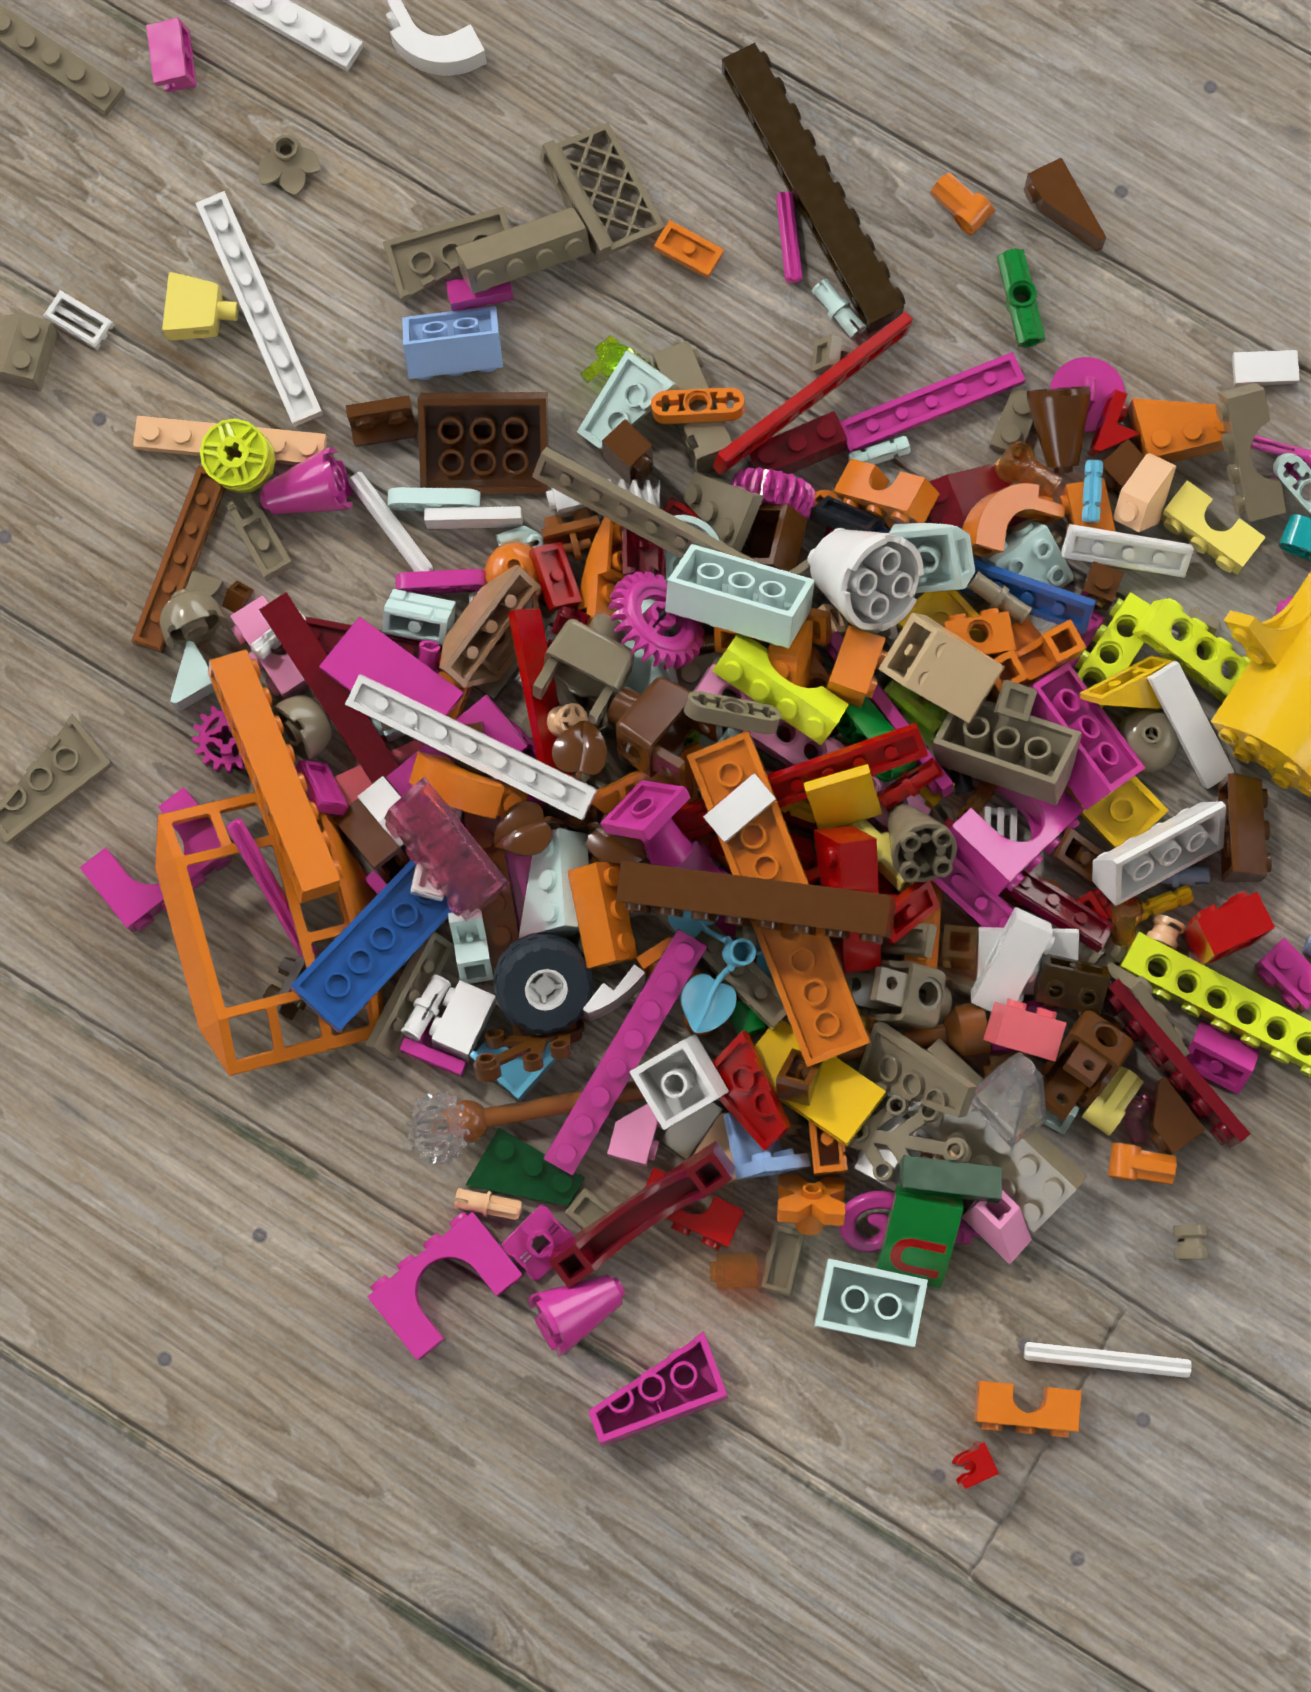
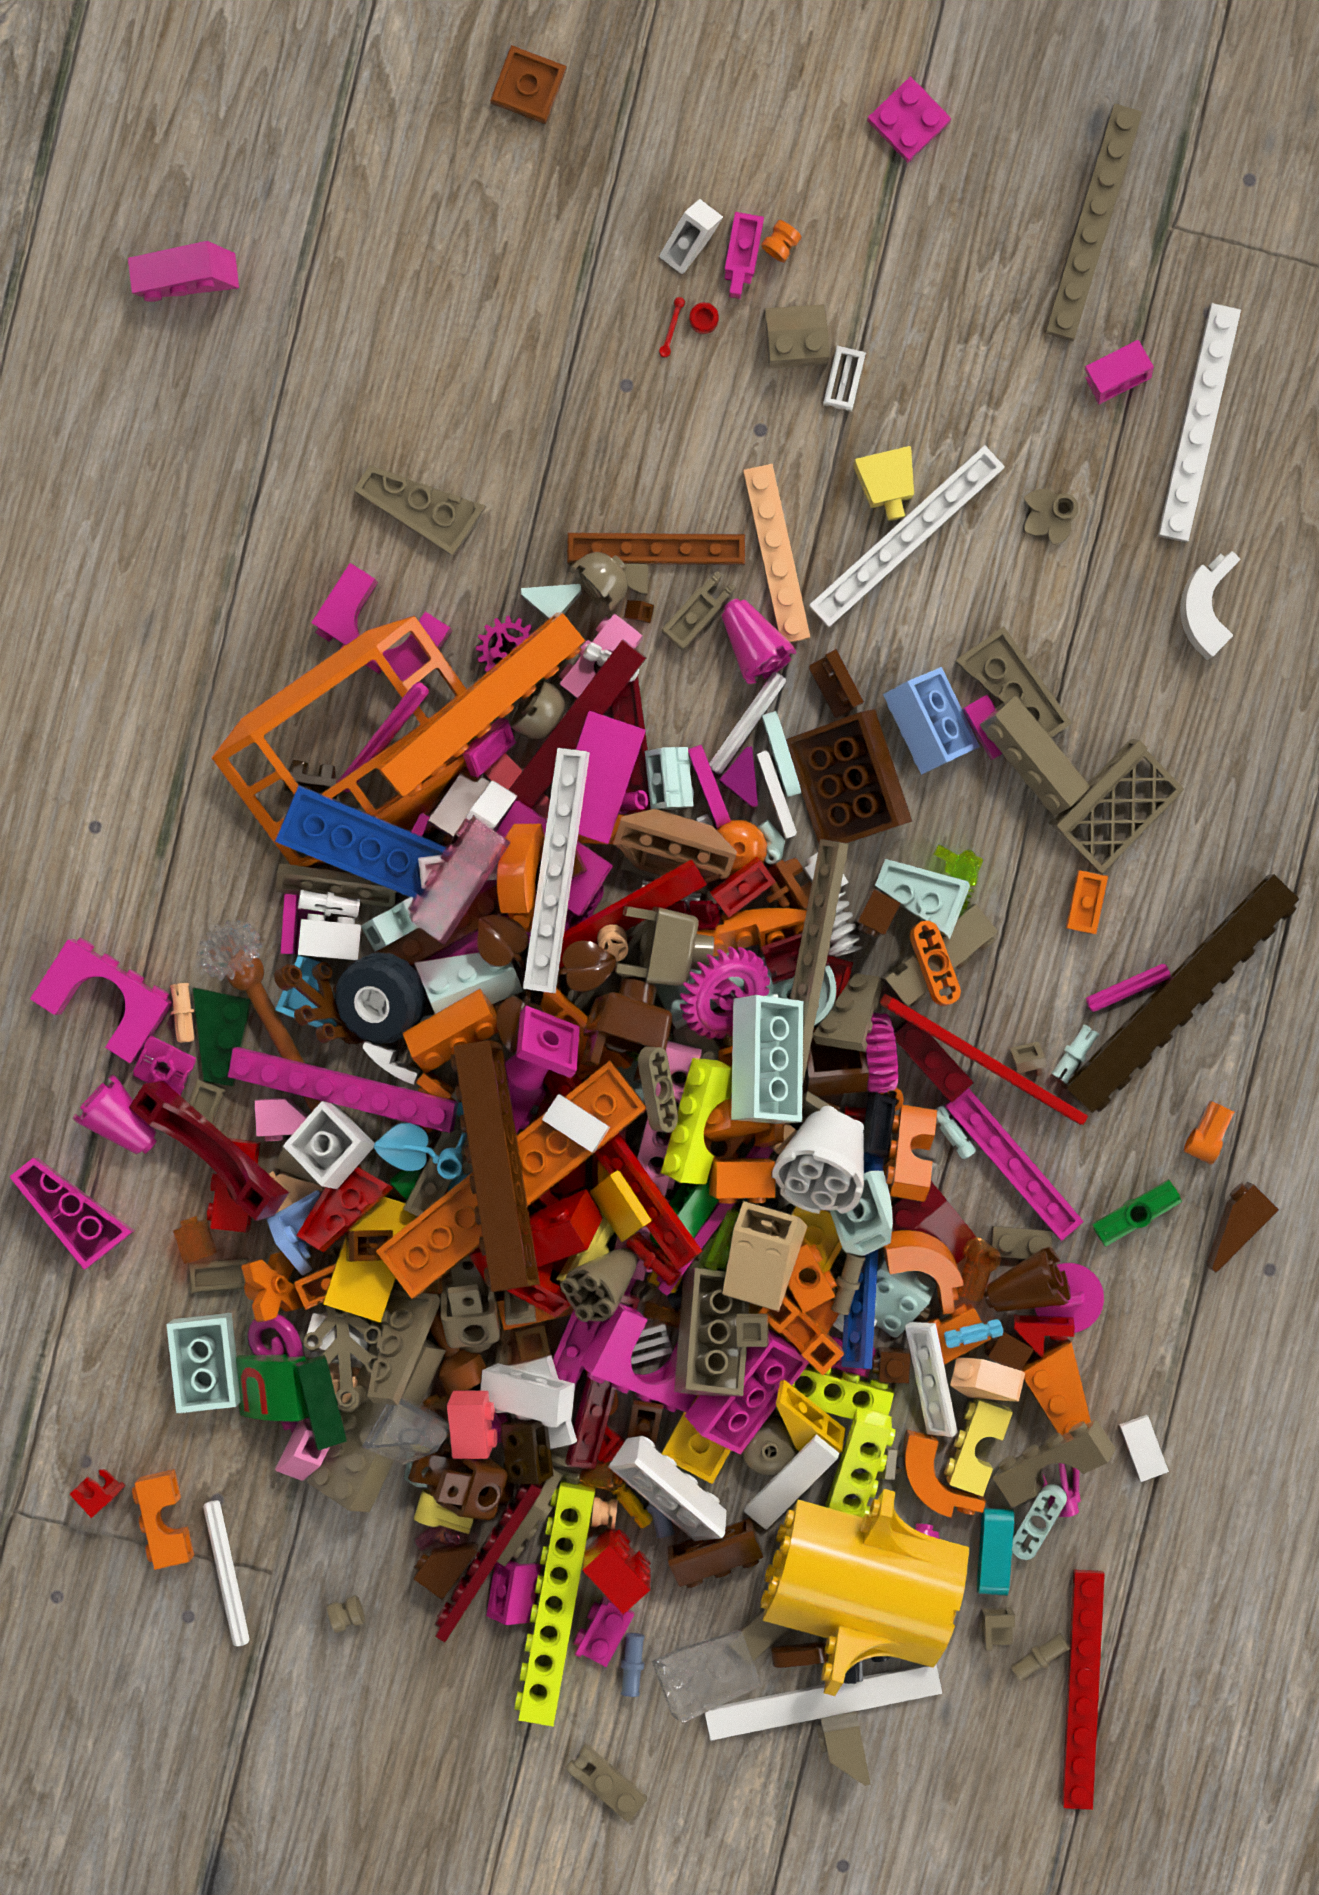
camera: 65 degrees right, 10 degrees up
(236, 473) = (770, 582): neon yellow wheel -> none
(445, 546) = (741, 778): none -> magenta slope
(1132, 1163) = (397, 1543): orange piece -> none
(1223, 594) = (918, 1462): none -> orange arch

